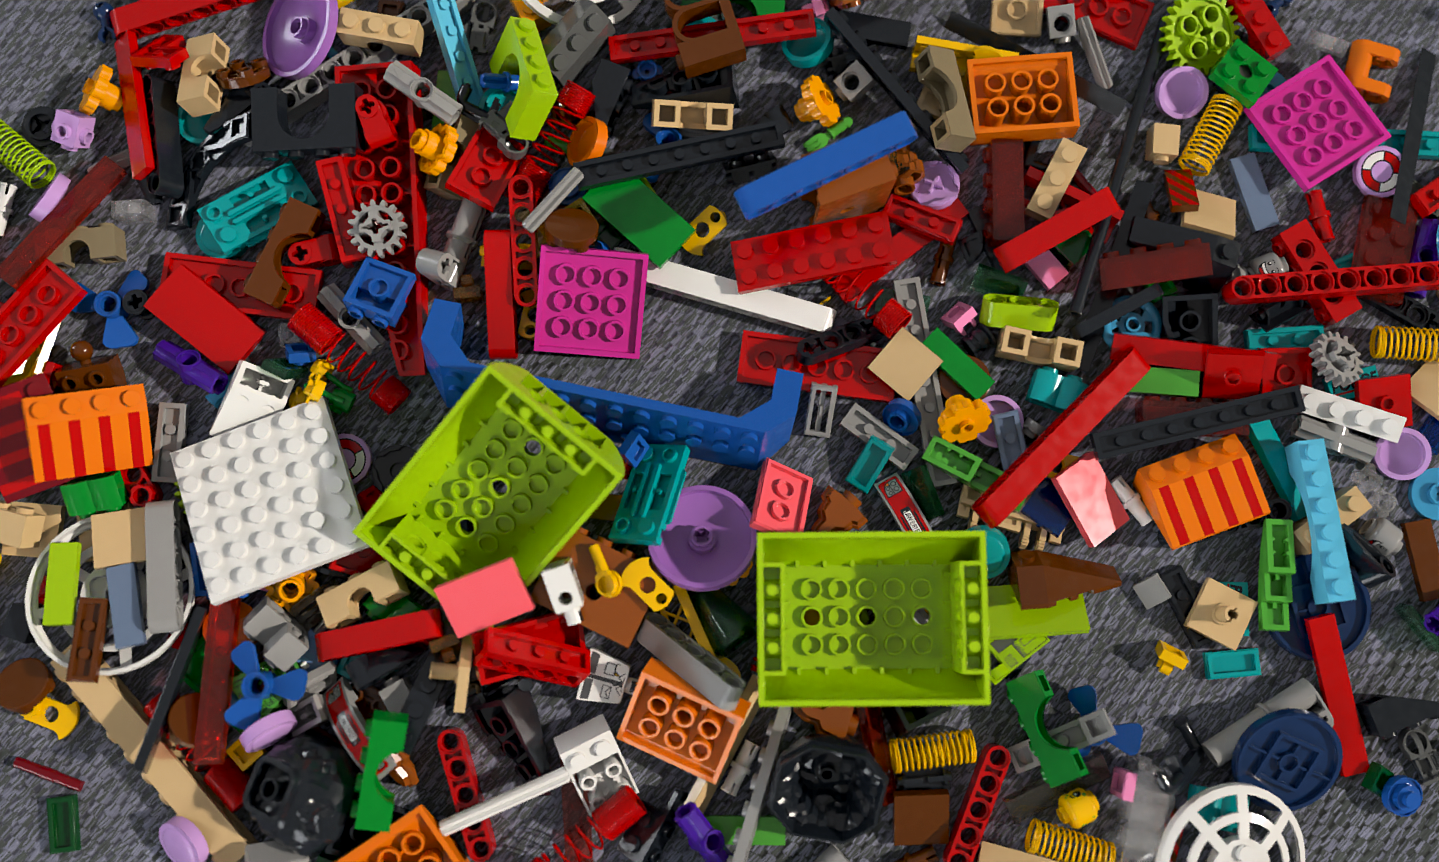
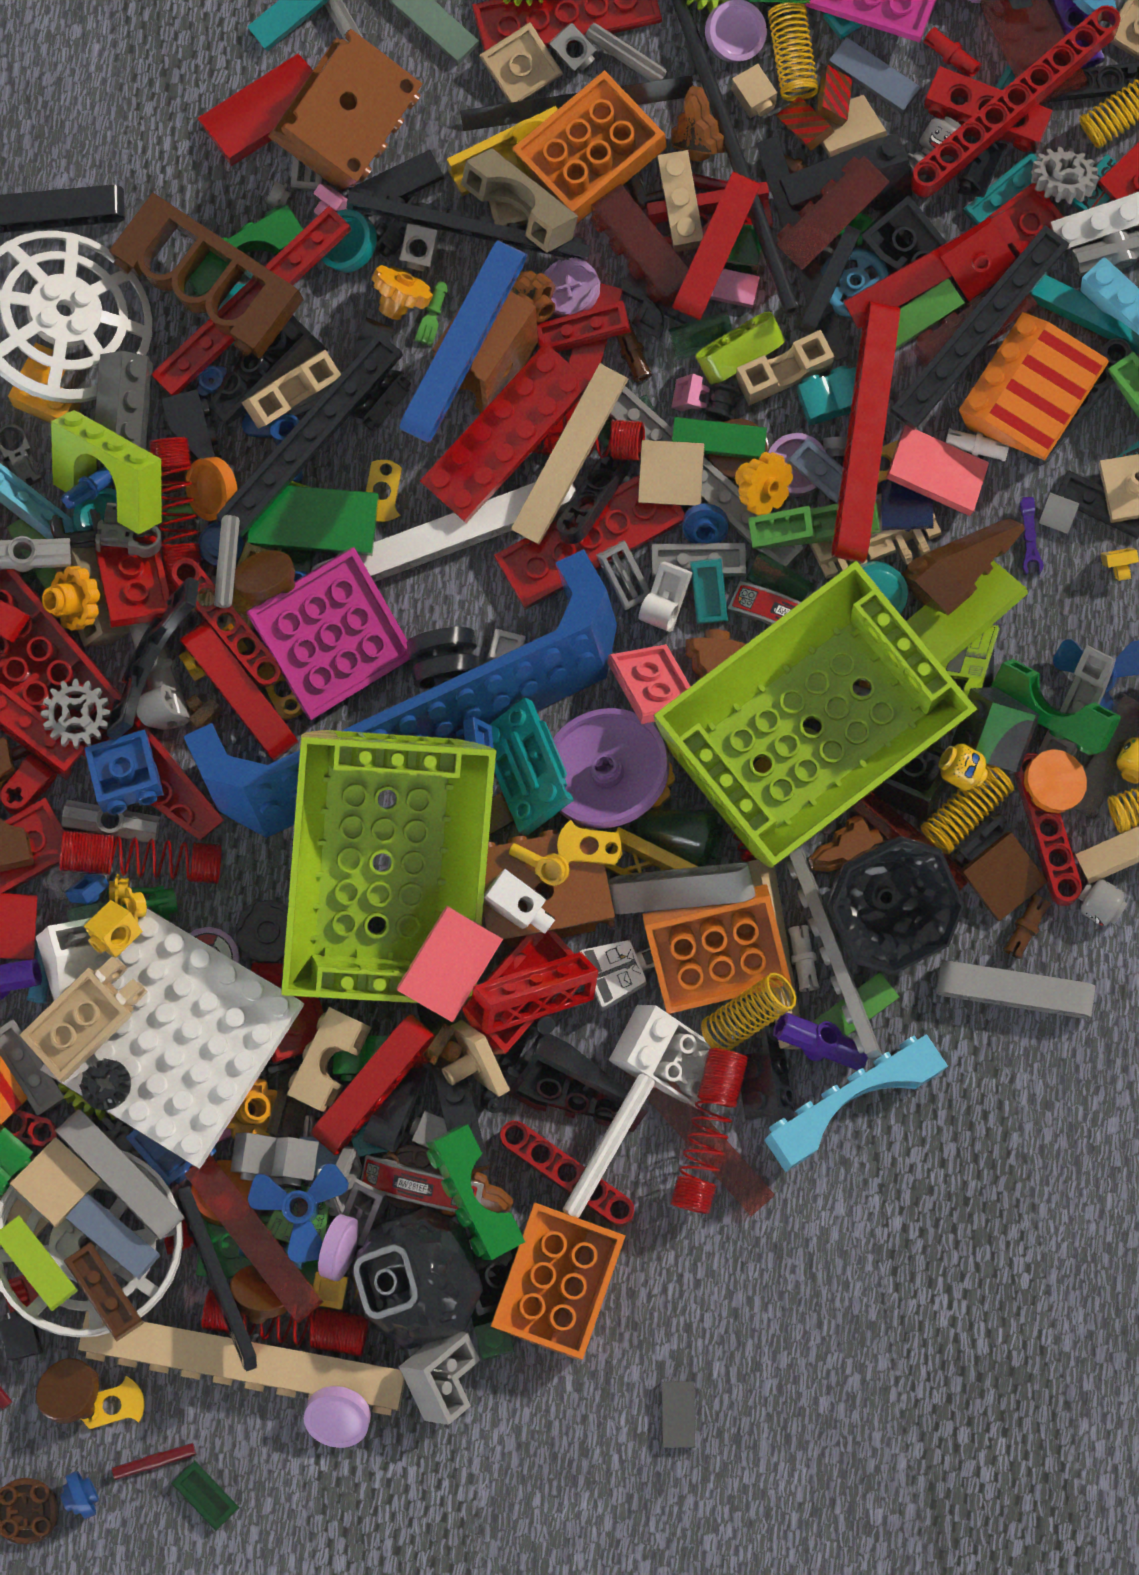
camera: 30 degrees left, 5 degrees down
(207, 502) = (108, 1098): none -> black gear
(218, 441) = (82, 1018): none -> tan tile
(283, 395) = (112, 929): none -> yellow brick
(498, 206) = (146, 653): none -> black tile
(654, 375) = (442, 655): none -> black wheel
(687, 792) = (727, 1032): none -> yellow piece
(704, 398) = (504, 642): none -> white tile
(837, 446) = (666, 597): none -> white plate
(845, 299) = (569, 453): none -> tan tile
(950, 725) = (963, 766): none -> yellow head
(997, 723) = (998, 728): none -> black slope
(1007, 782) = (1055, 781): none -> orange tile
(1105, 138) = (697, 128): none -> dark orange rock
(1130, 573) = (1027, 509): none -> dark purple piece
(1216, 186) = (834, 95): none -> reddish brown tile

